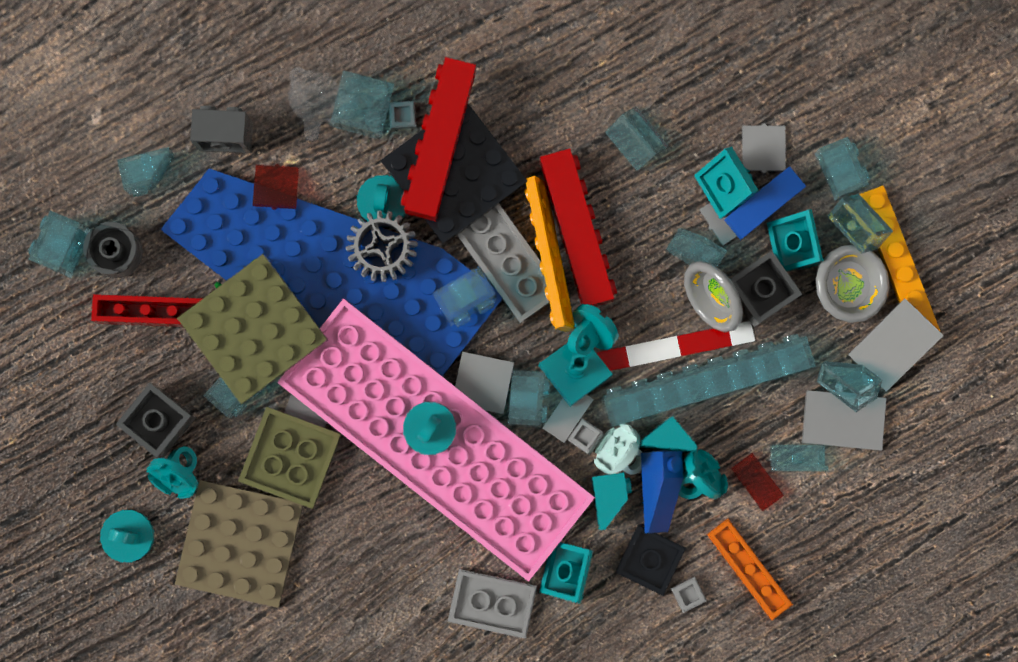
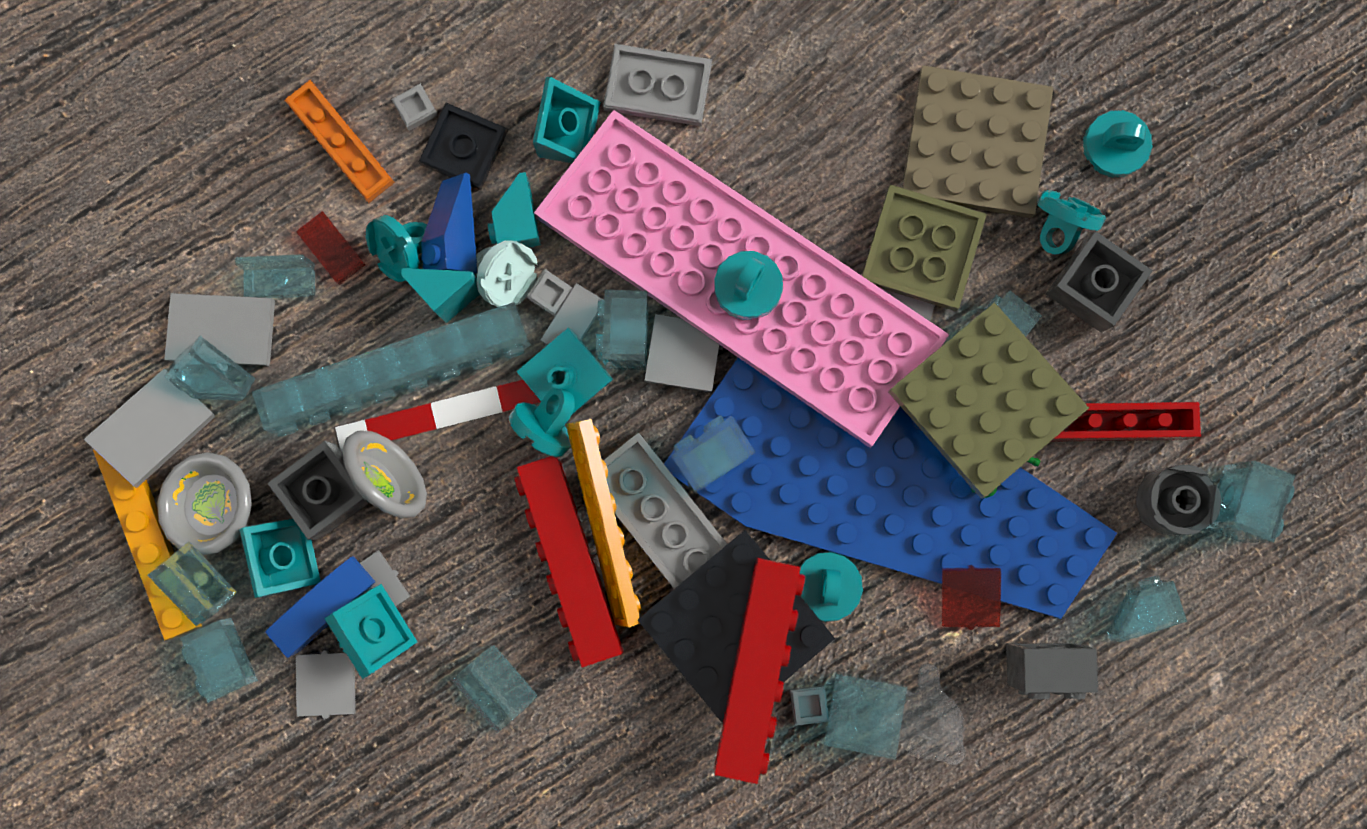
camera: 175 degrees right, 0 degrees up
(373, 225) = (832, 536): light grey gear -> none
(694, 248) = (411, 540): clear light blue slope -> none

